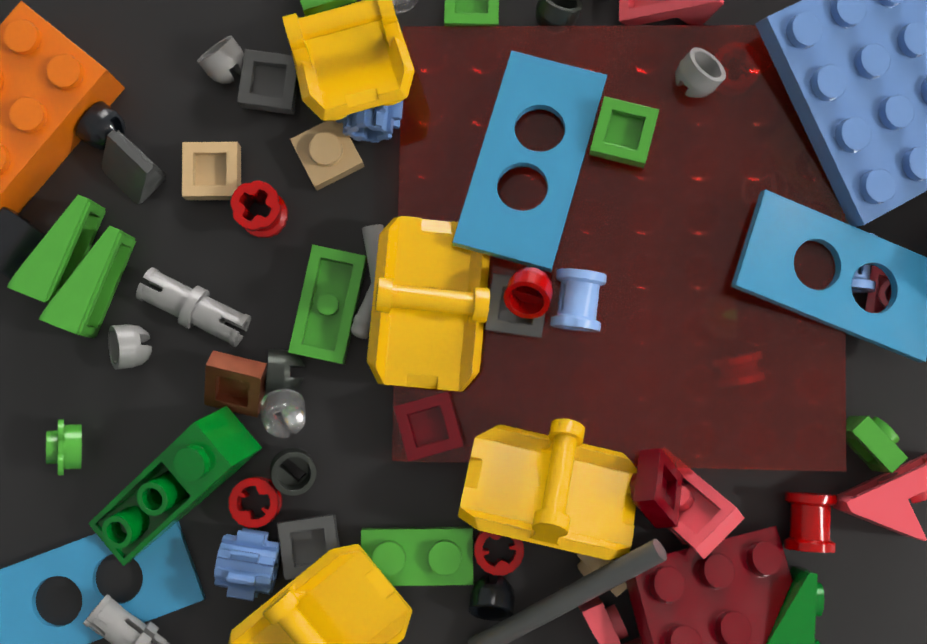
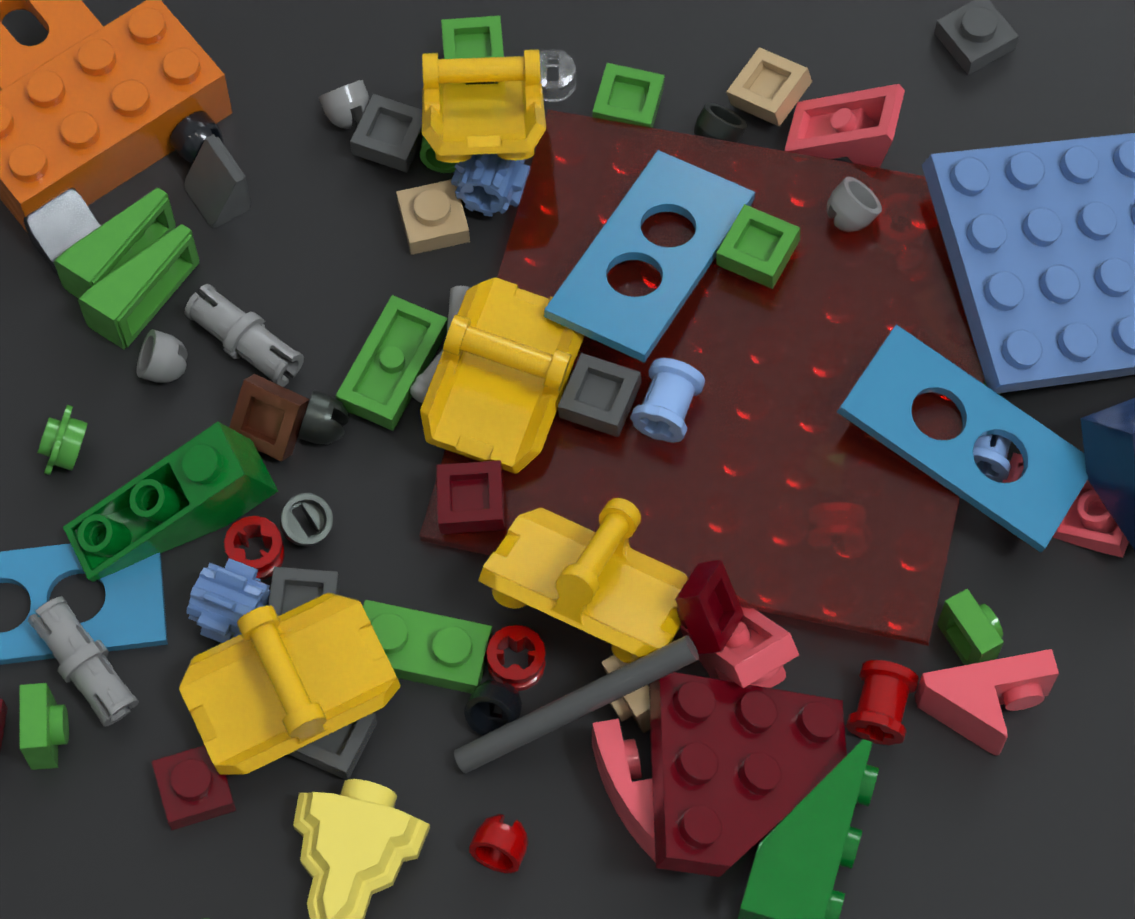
camera: 15 degrees right, 20 degrees down
(210, 170) = (303, 205): tan plate -> none
(260, 193) = (344, 251): red bush -> none
(292, 409) = (324, 454): clear hinge -> none
(528, 293) = (607, 378): red hinge -> none

